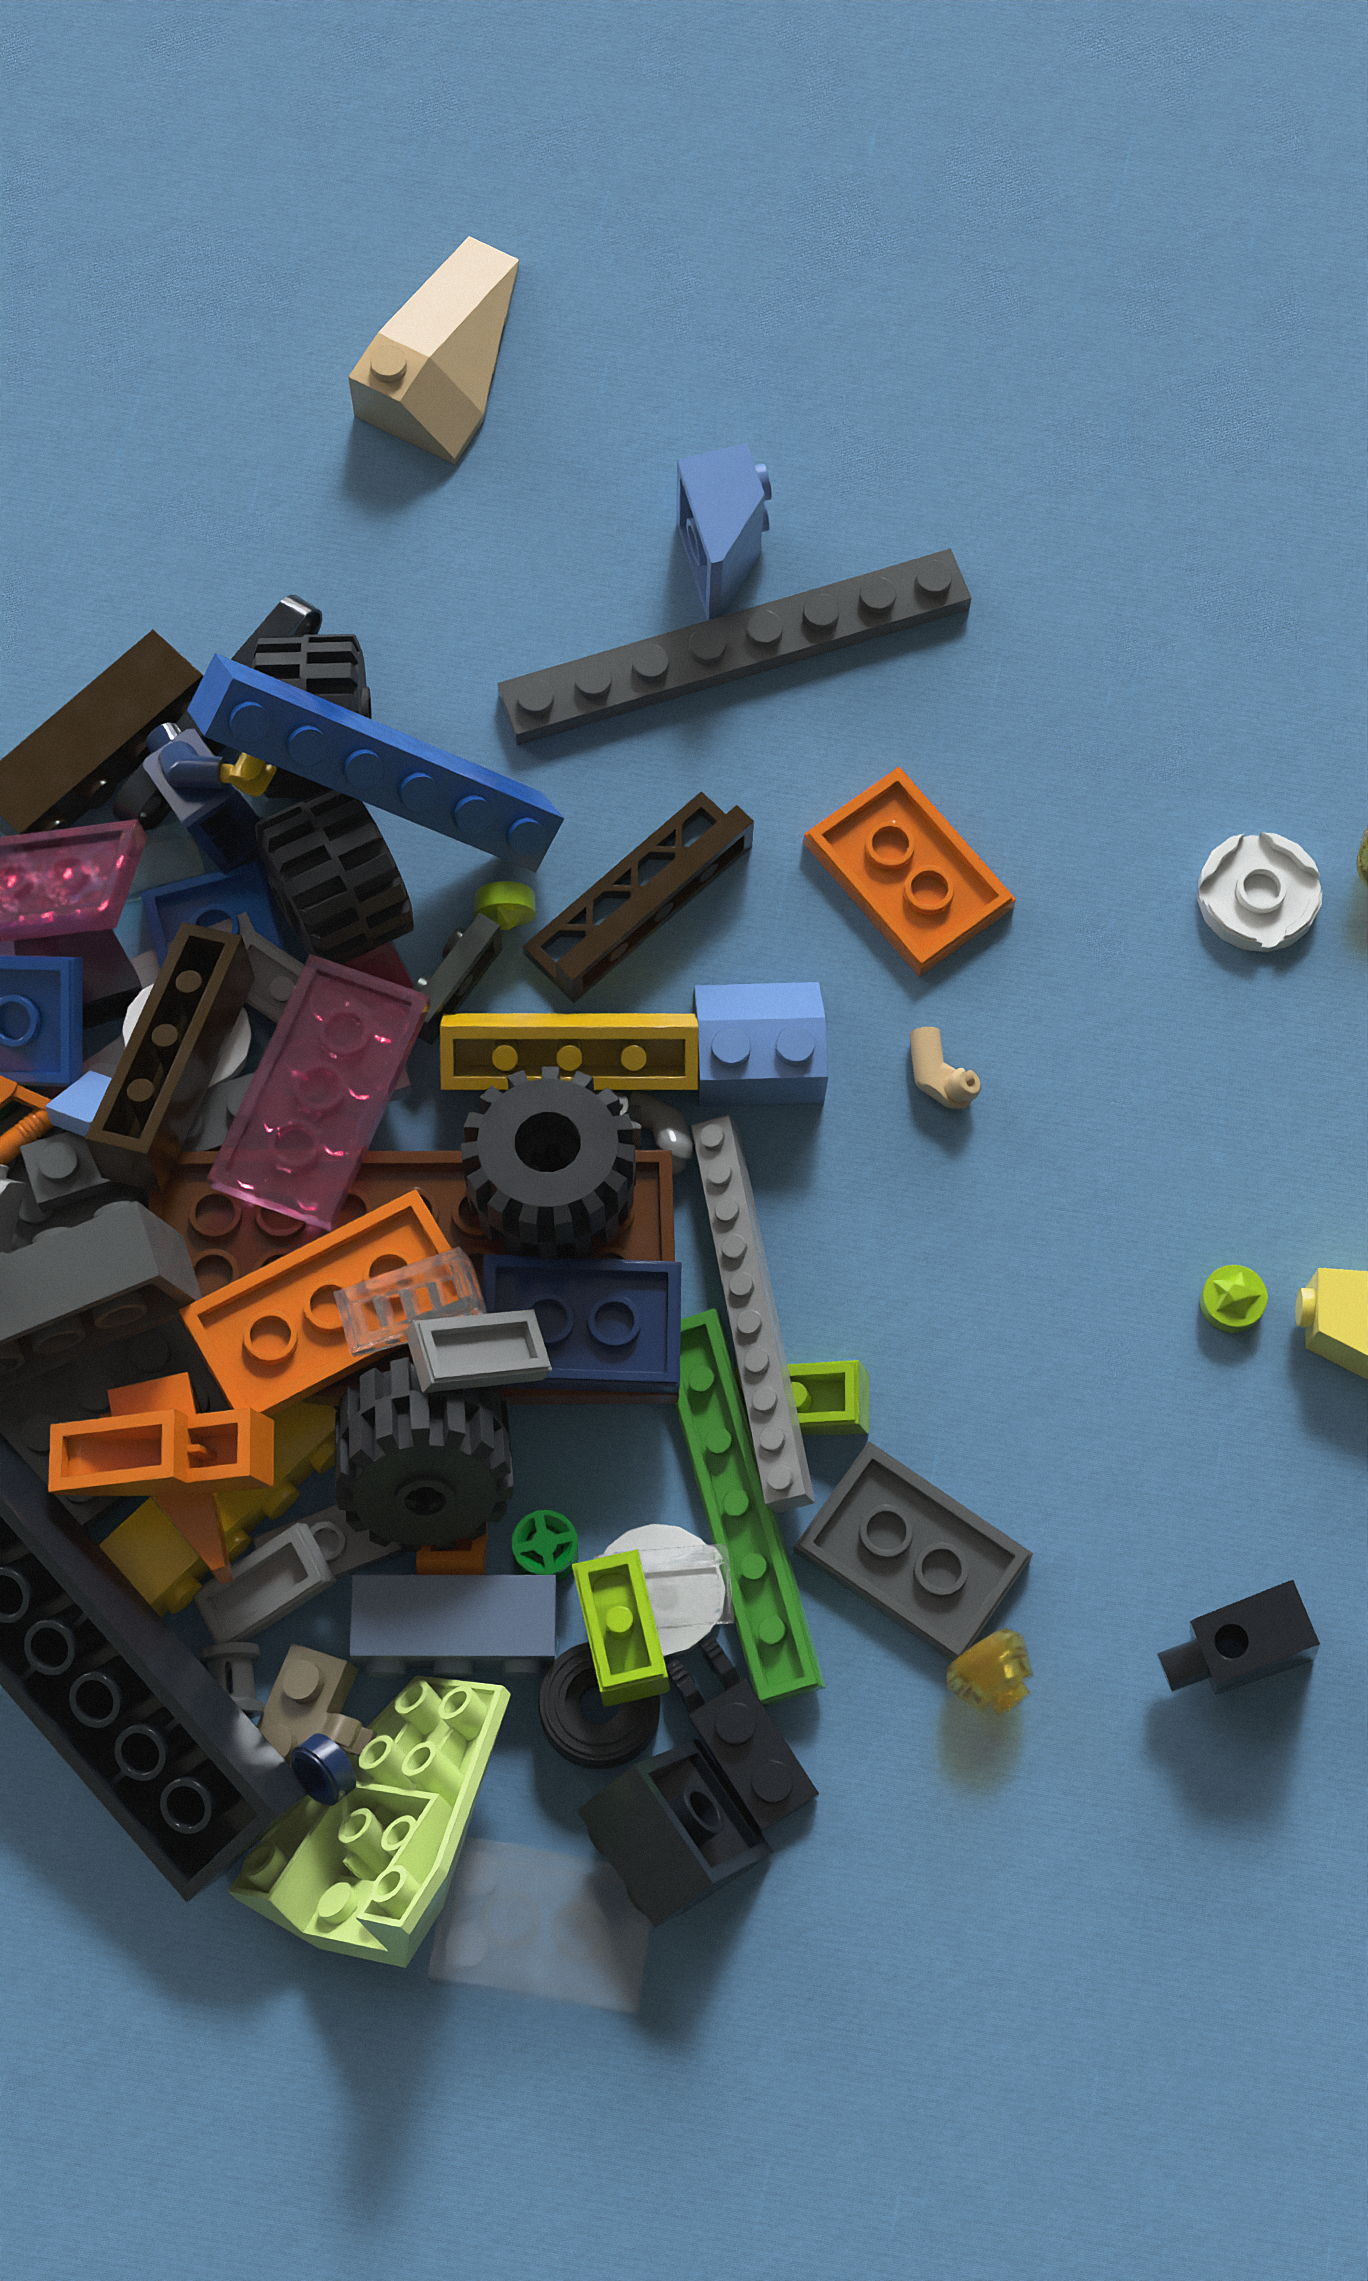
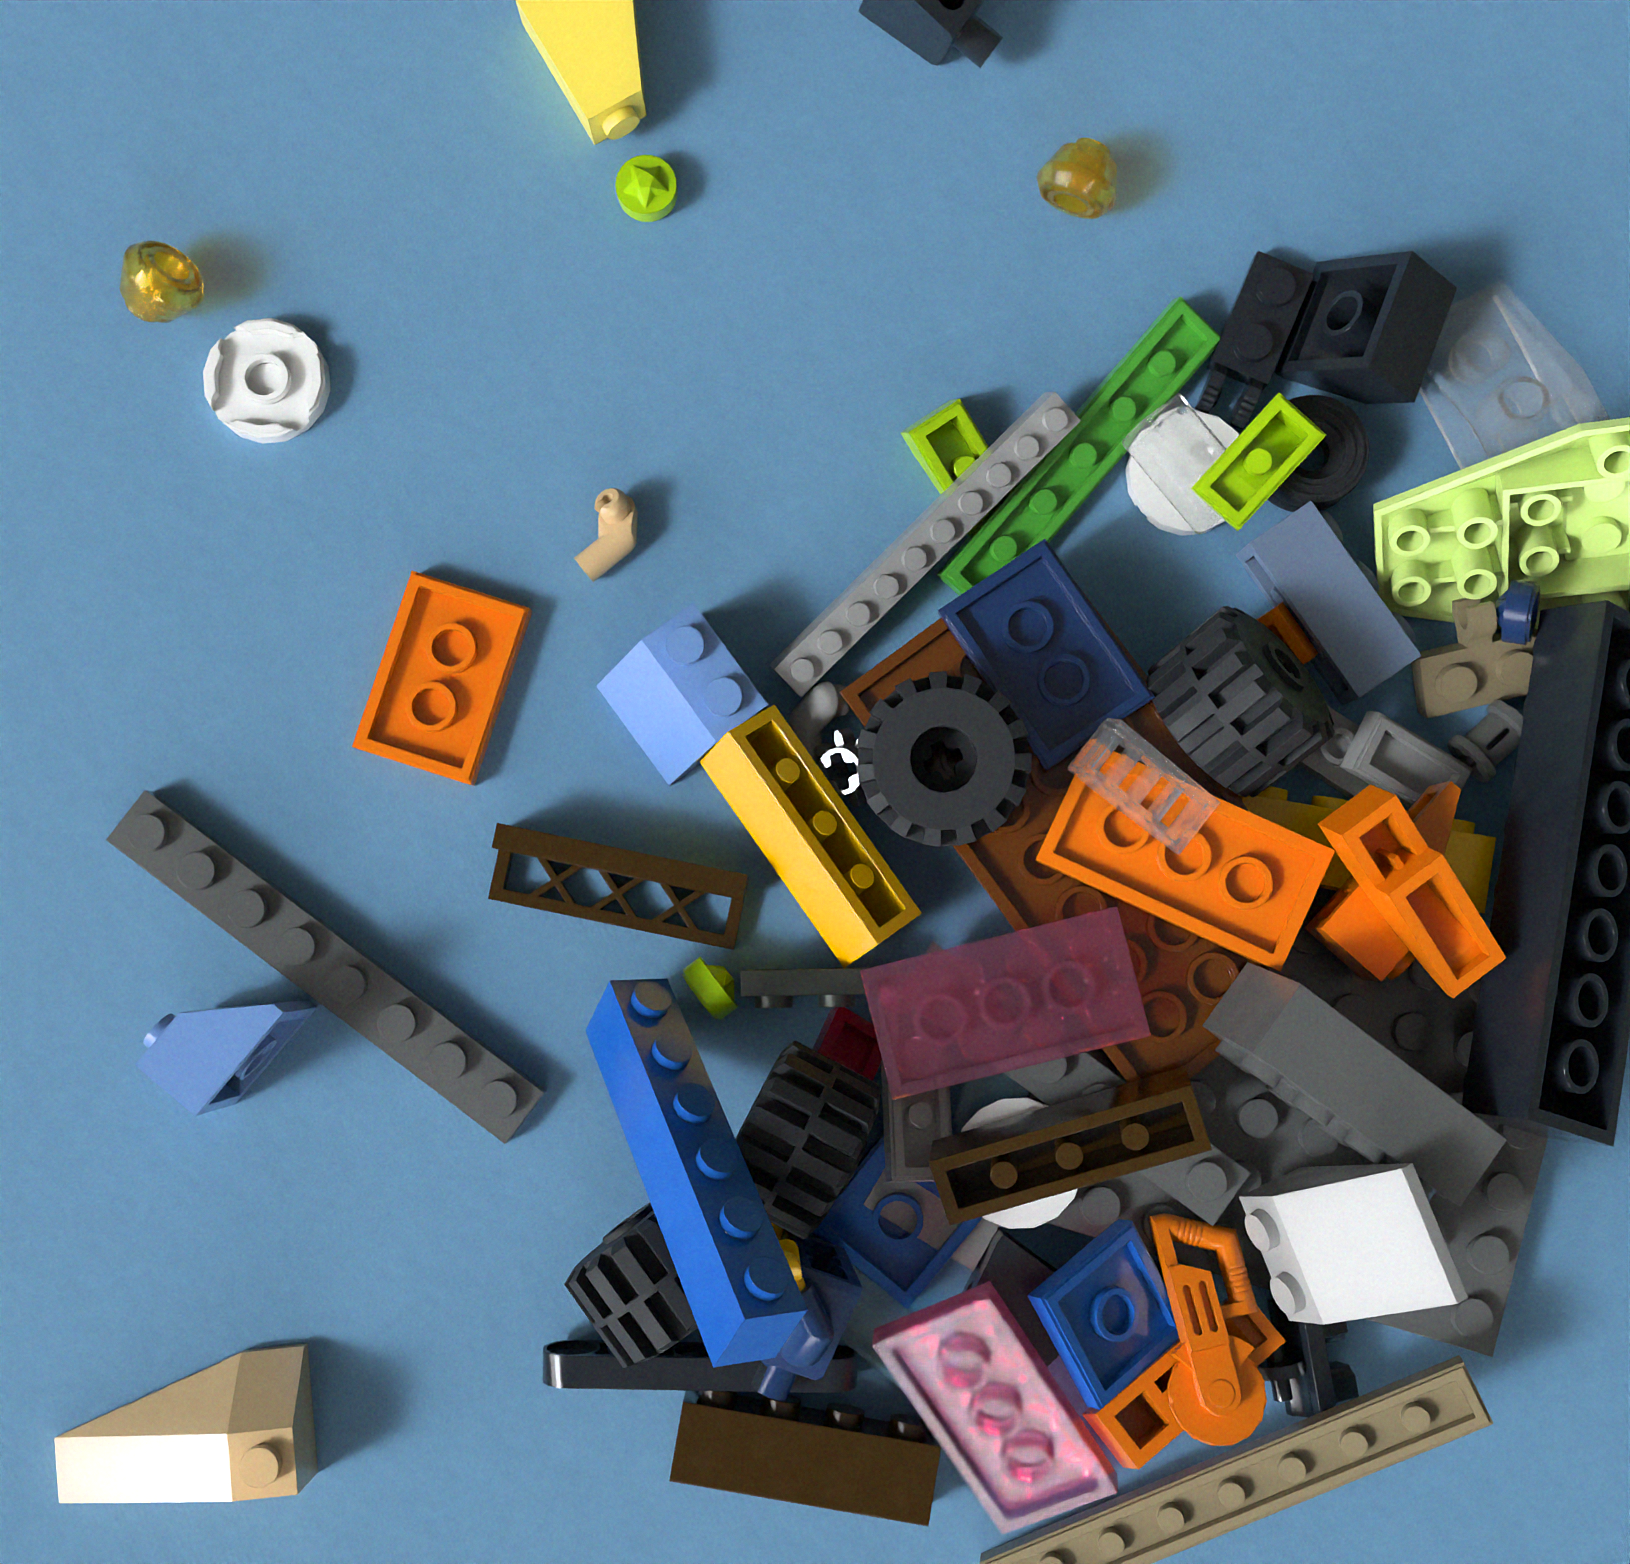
camera: 125 degrees left, 15 degrees up
(78, 1103) = (1143, 1197): medium blue tile -> none
(478, 1350) = (1148, 700): light grey tile -> none
(544, 1533) = (1230, 567): green wheel -> none
(912, 1552) = (1022, 304): dark grey tile -> none

